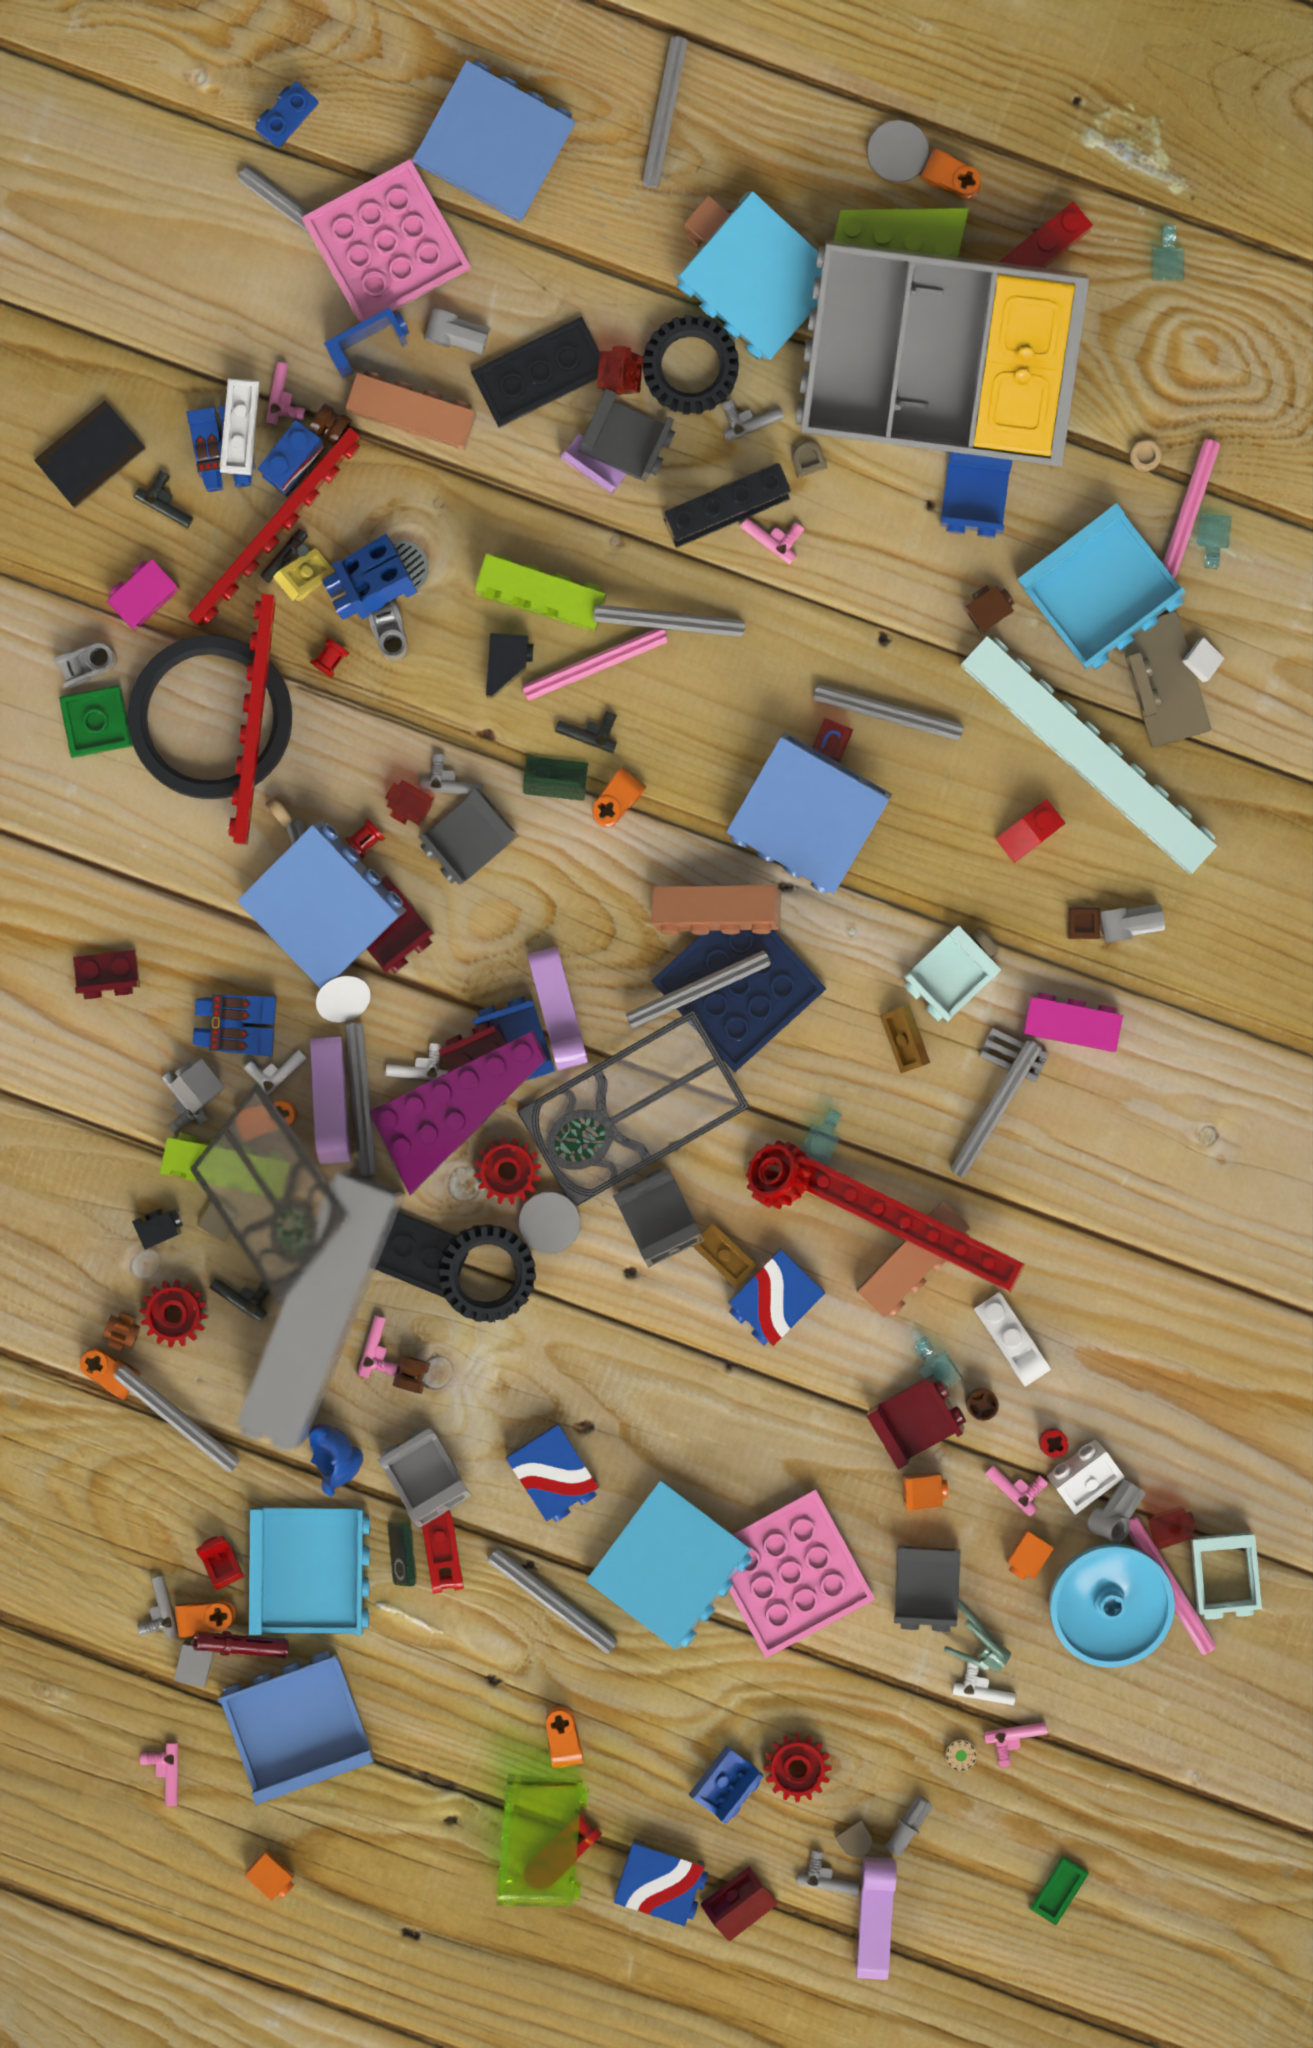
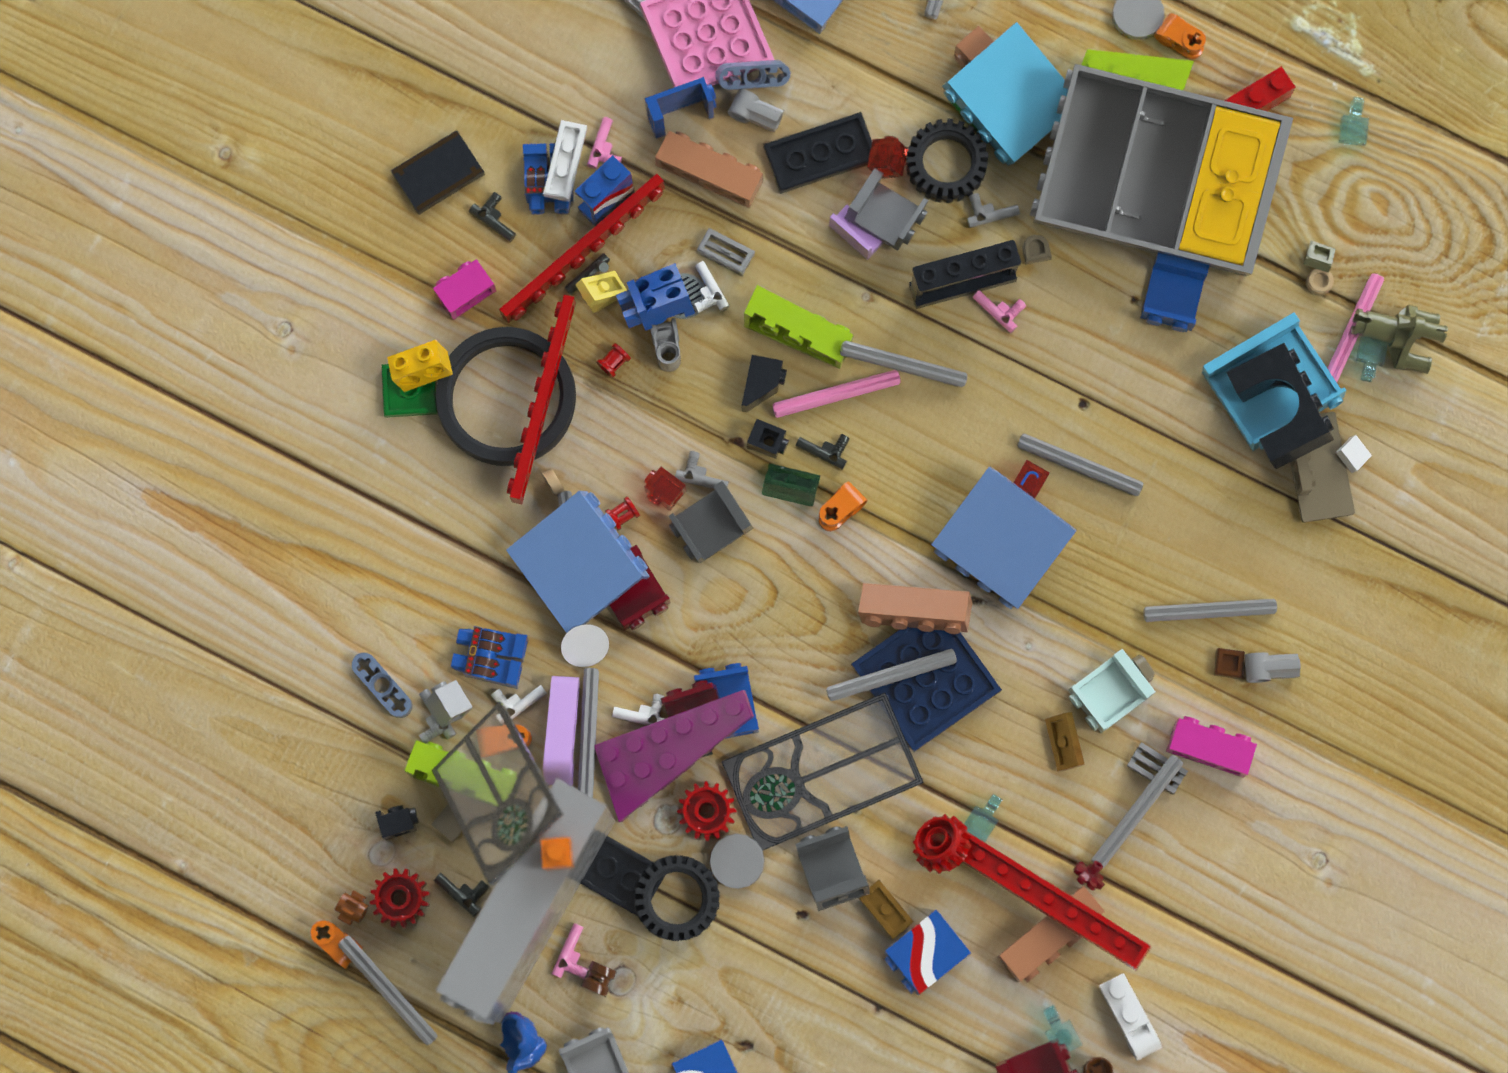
camera: 10 degrees right, 10 degrees down
(83, 664) = (406, 337): light grey piece -> none
(104, 1052) = (363, 675): none -> sand blue beam
(105, 697) = (419, 365): none -> yellow brick
(106, 973) = (386, 599): dark red bracket -> none
(330, 424) = (641, 170): reddish brown wheel -> none
(349, 1259) = (557, 853): none -> orange brick
(430, 559) = (709, 291): none -> white hose
(438, 519) = (720, 260): none -> light grey tile
(460, 294) = (743, 68): none -> sand blue beam
(510, 725) = (763, 431): none -> black brick
(557, 1008) = (768, 677): lavender beam -> none
(950, 1187) = (1090, 875): none -> dark red plant
(989, 607) = (1175, 388): reddish brown brick -> none
(1030, 831) = (1192, 578): red slope -> none
(1055, 864) = (1210, 610): none -> light grey axle
(1089, 755) = (1248, 521): light aqua brick -> none
(1142, 426) = (1319, 256): none -> olive tile
(1145, 641) = (1308, 427): none -> black arch
(1246, 509) = (1401, 333): none -> olive wheel

